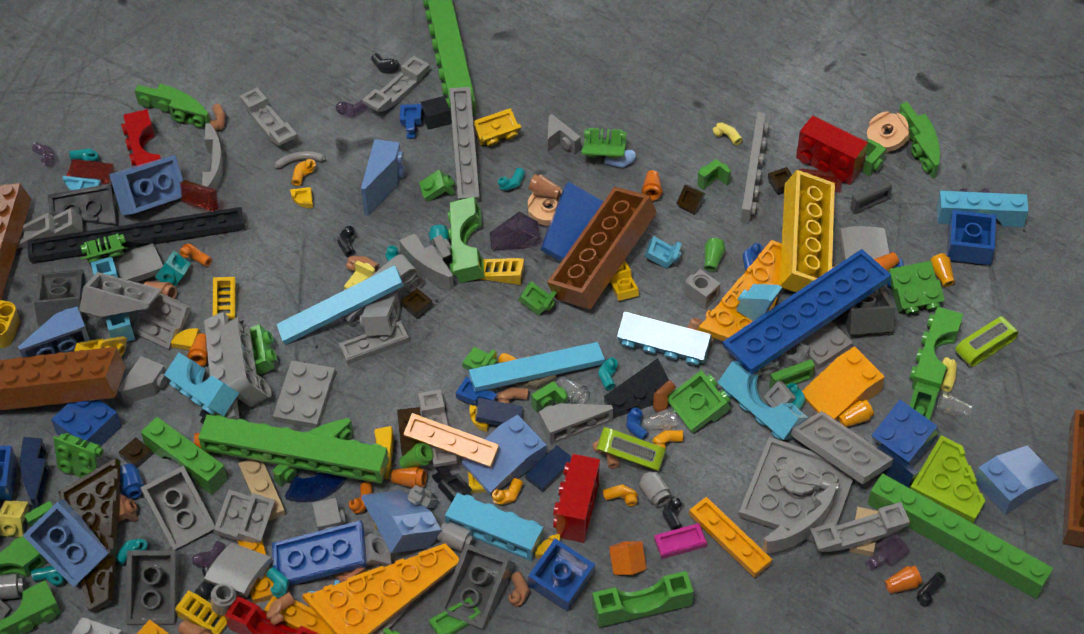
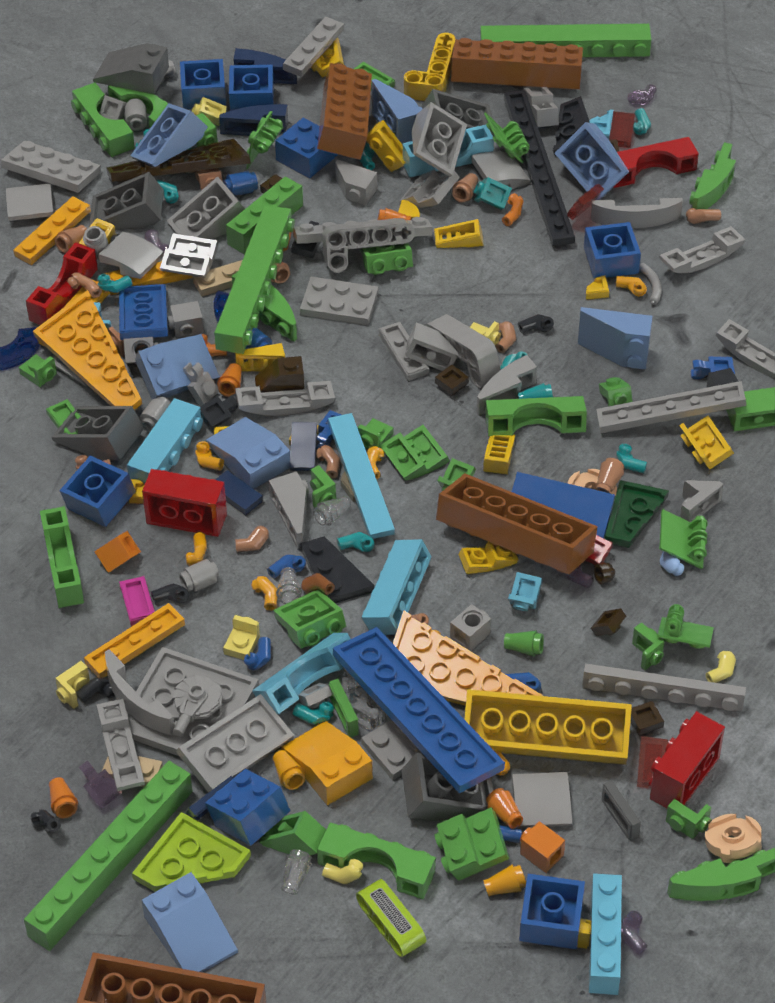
camera: 90 degrees right, 5 degrees down
(210, 395) = (345, 206): medium azure arch -> none
(266, 178) = (612, 250): none -> blue brick
(340, 304) = (438, 311): medium azure tile -> none
(350, 110) = (724, 314): clear purple arm -> none
(419, 455) = (240, 376): bright green cone -> none
(442, 246) = (515, 386): light grey plate -> none
(451, 440) = (256, 395): plate -> none
(502, 331) = (415, 453): none -> bright green slope
(515, 233) = (547, 460): clear purple slope -> none
(562, 172) = (632, 511): none -> dark green wing
(631, 449) = (244, 549): lime beam -> none
(652, 185) = (627, 586): orange cone -> none
(698, 149) = (675, 629): none -> bright green hinge
(720, 455) = (242, 637): none -> light yellow bracket
(738, 439) = (263, 656): none -> blue arm
(757, 300) = (434, 662): medium azure slope -> none
(781, 582) = (70, 682): none -> light yellow bracket
(783, 564) = (96, 685): none -> black arm
(910, 245) = (542, 846): none -> orange brick

